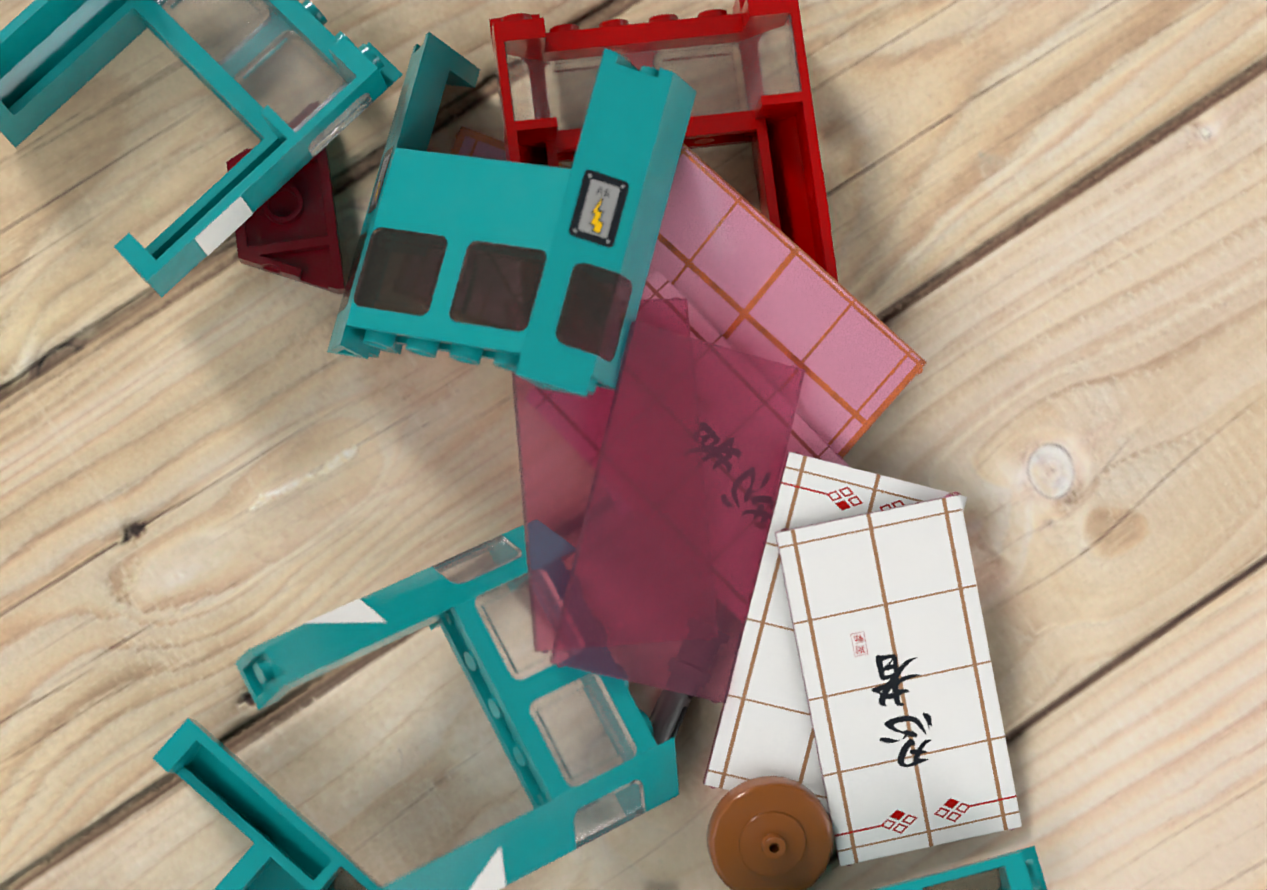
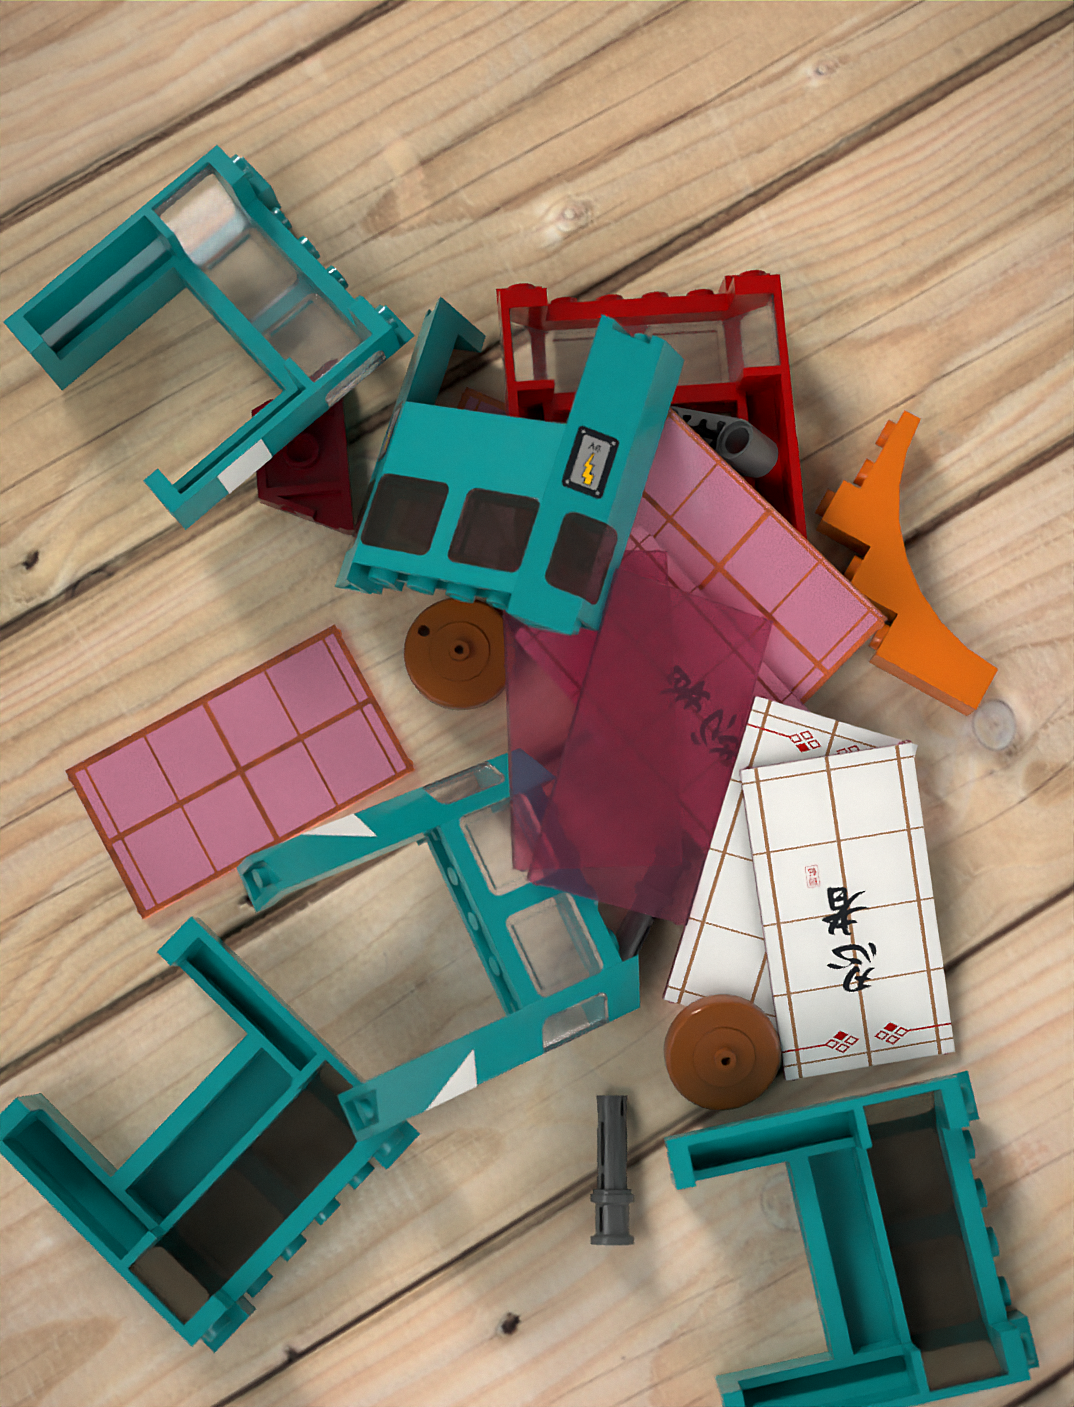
camera: 10 degrees right, 0 degrees up
(231, 558) = (239, 771): none -> clear pink piece
(463, 420) = (457, 654): none -> dark orange wheel
(754, 175) = (734, 440): none -> dark grey beam
(962, 385) = (916, 642): none -> orange arch

